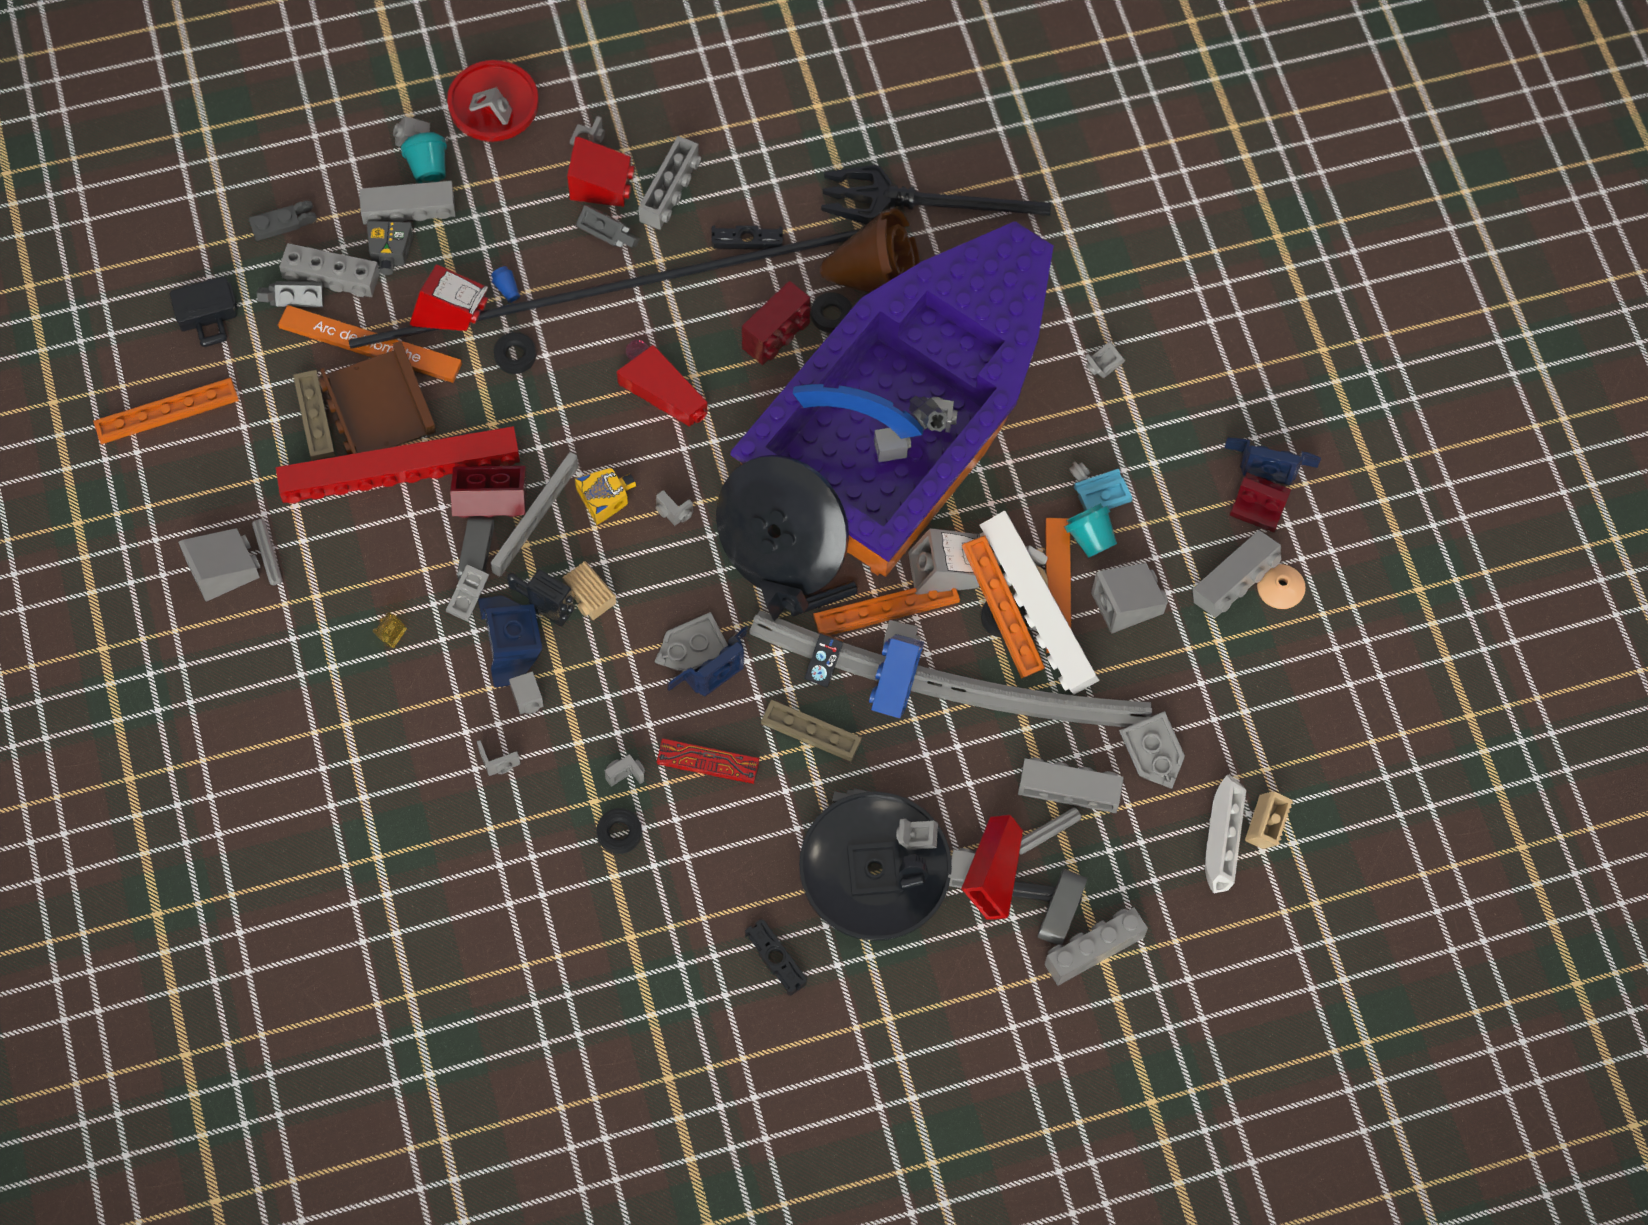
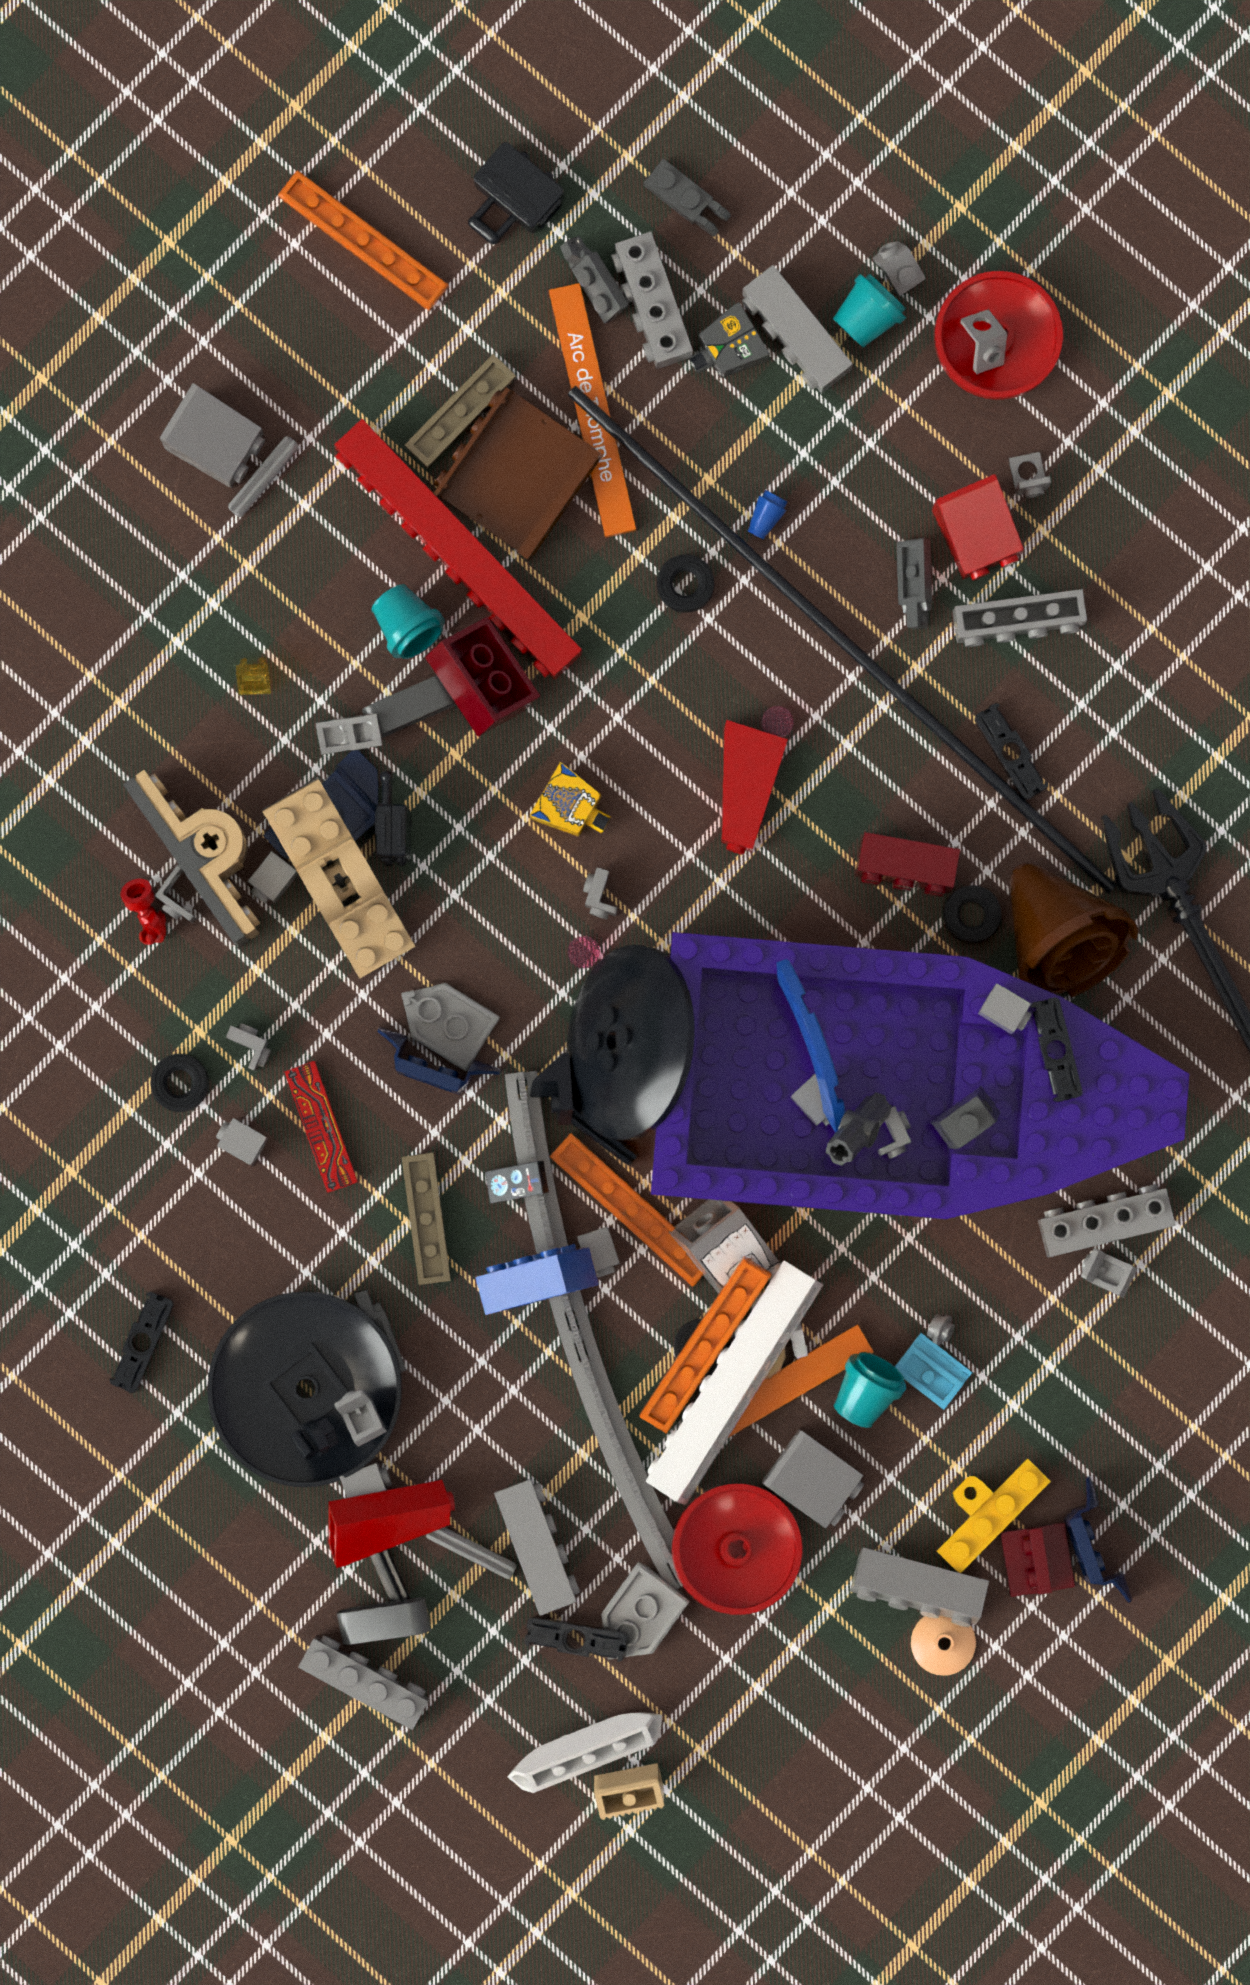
camera: 60 degrees right, 20 degrees up
(422, 516) = (407, 622): none -> teal piece
(448, 301) = (690, 472): red slope -> none
(478, 716) = (189, 845): none -> tan piece
(480, 781) = (138, 897): none -> red arm
(534, 514) = (508, 743): light grey tile -> none
(556, 645) = (338, 877): none -> tan piece
(589, 591) = (437, 866): tan brick -> none
(684, 812) = (241, 1141): none -> light grey brick
(703, 540) = (583, 952): none -> clear pink plate
(908, 288) = (1005, 1009): none -> light grey brick
(961, 352) = (966, 1119): none -> dark grey torso
(968, 281) = (1052, 1027): none -> black piece
(1072, 344) = (1106, 1222): none -> light grey brick
(1147, 665) = (737, 1549): none -> red dish
(1157, 784) = (555, 1634): none -> black piece
(1213, 509) = (990, 1512): none -> yellow plate

